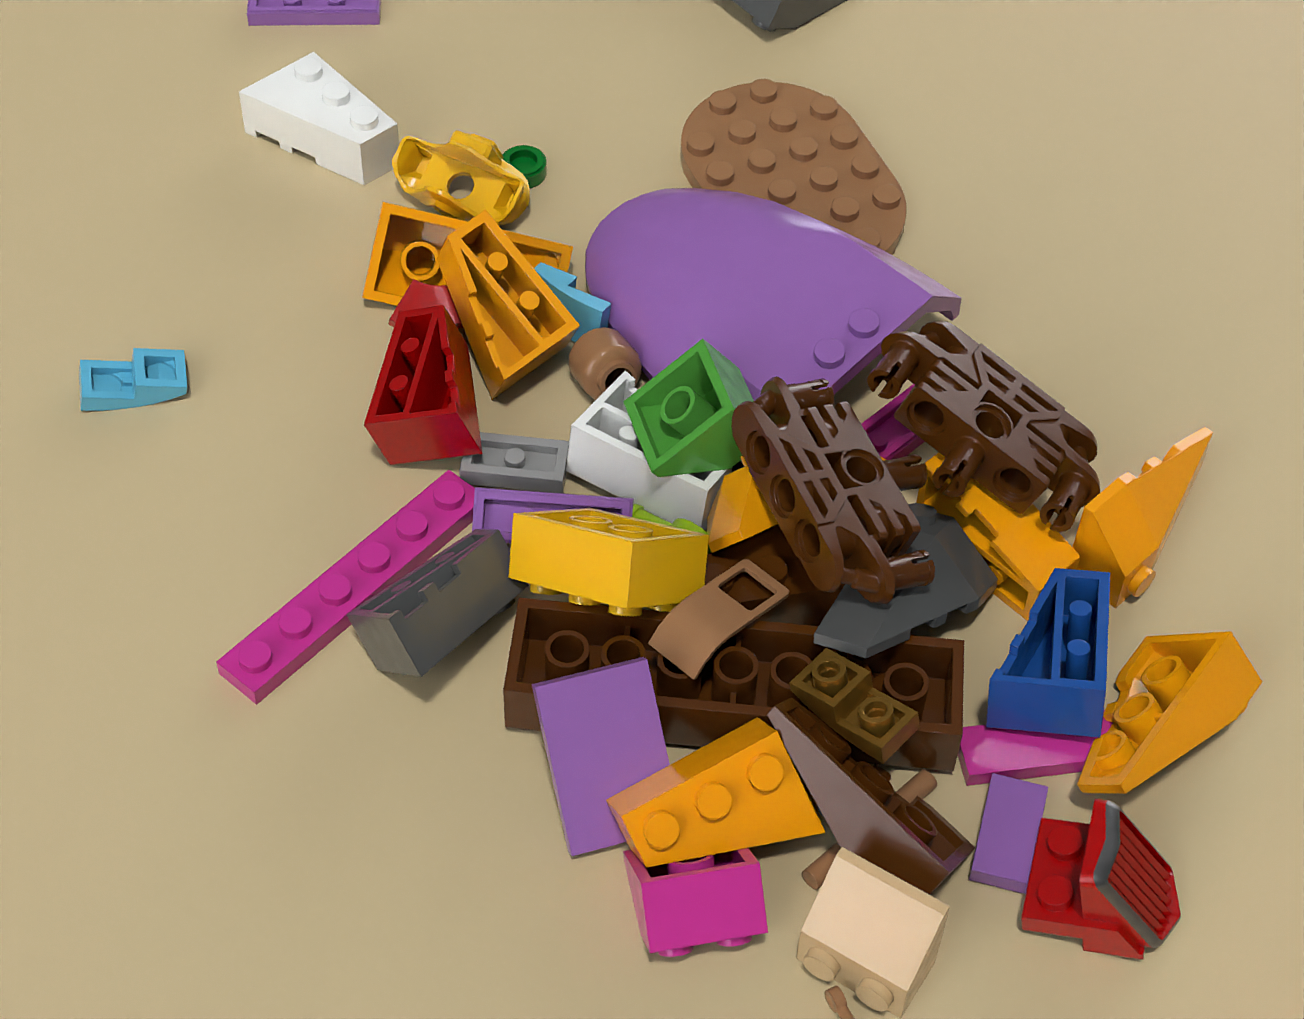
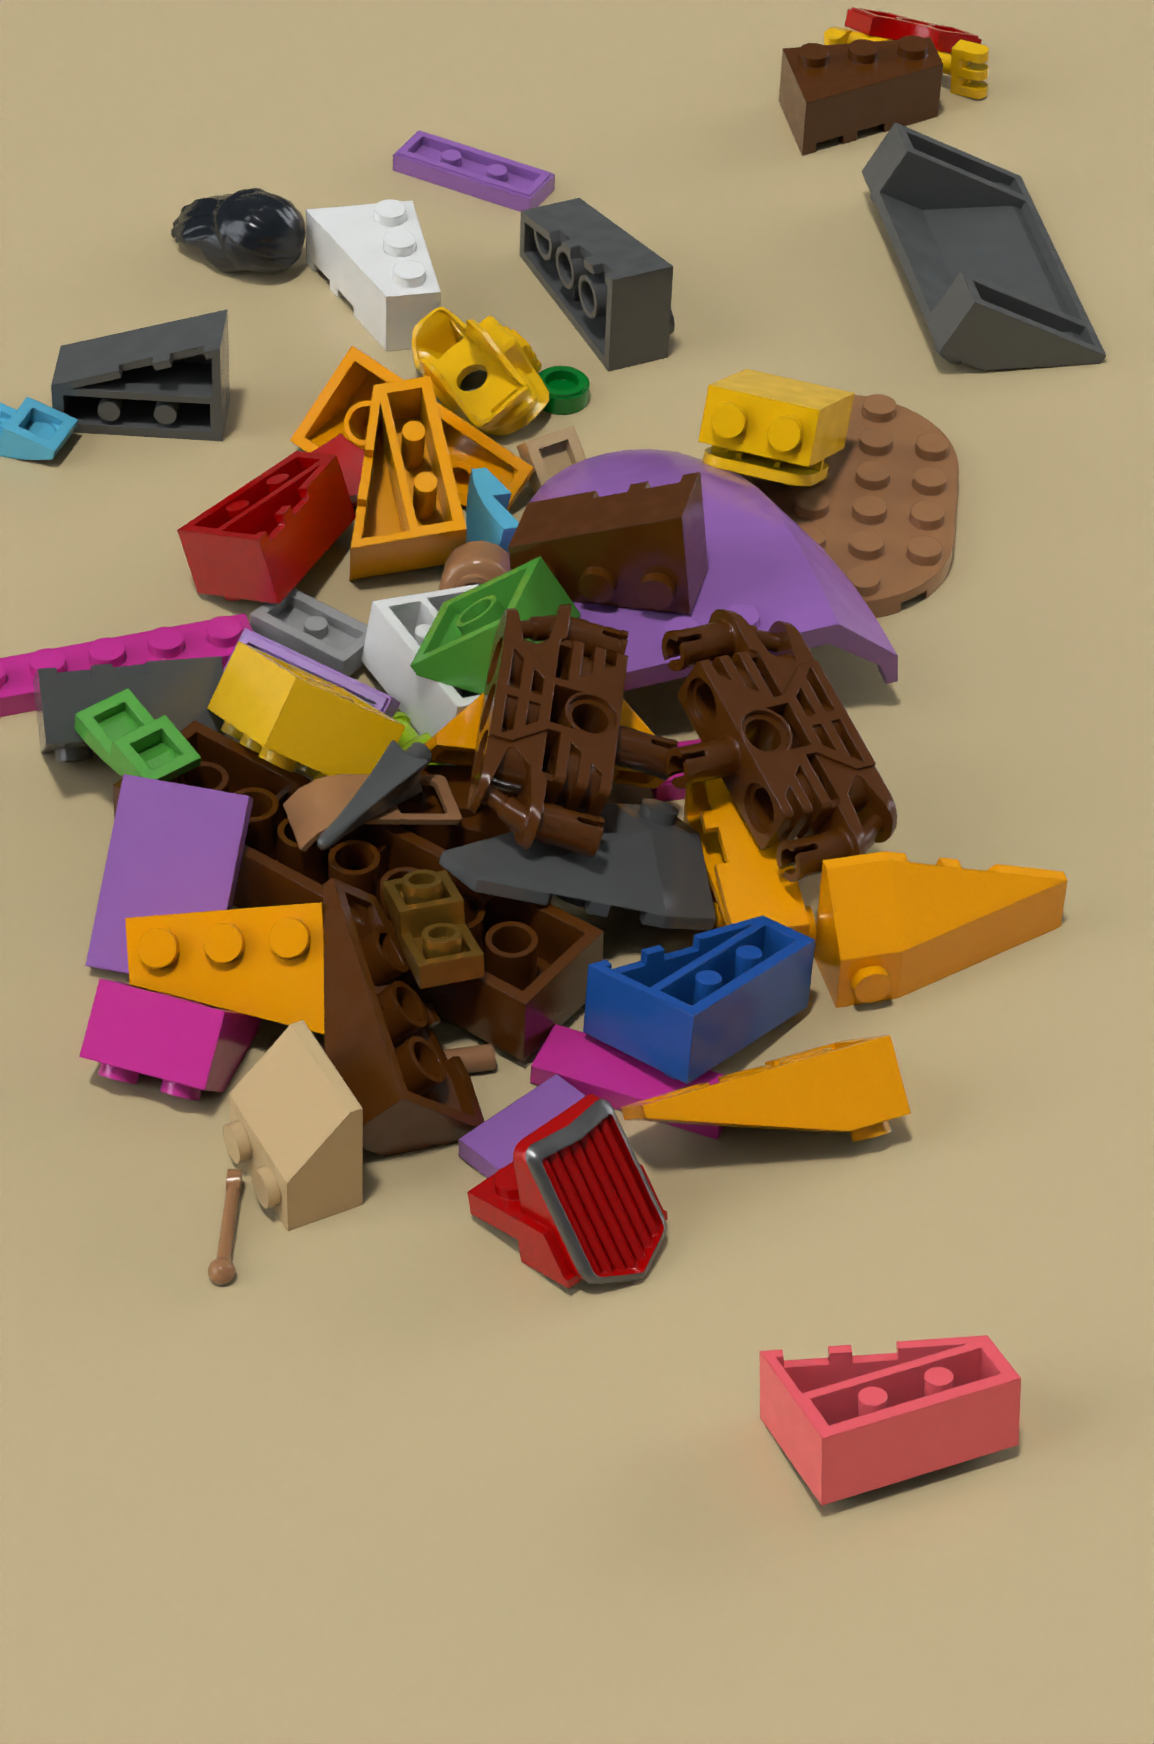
camera: 30 degrees right, 10 degrees down
(186, 126) = (243, 231): none -> black hair
(223, 292) = (149, 380): none -> dark grey wedge
(492, 61) = (601, 281): none -> dark grey wedge
(503, 648) = (133, 740): none -> bright green slope
(574, 228) = (551, 454): none -> tan plate
(730, 591) = (389, 784): none -> dark grey piece
(739, 142) = (774, 426): none -> yellow brick
(748, 305) = (621, 547): none -> reddish brown wedge

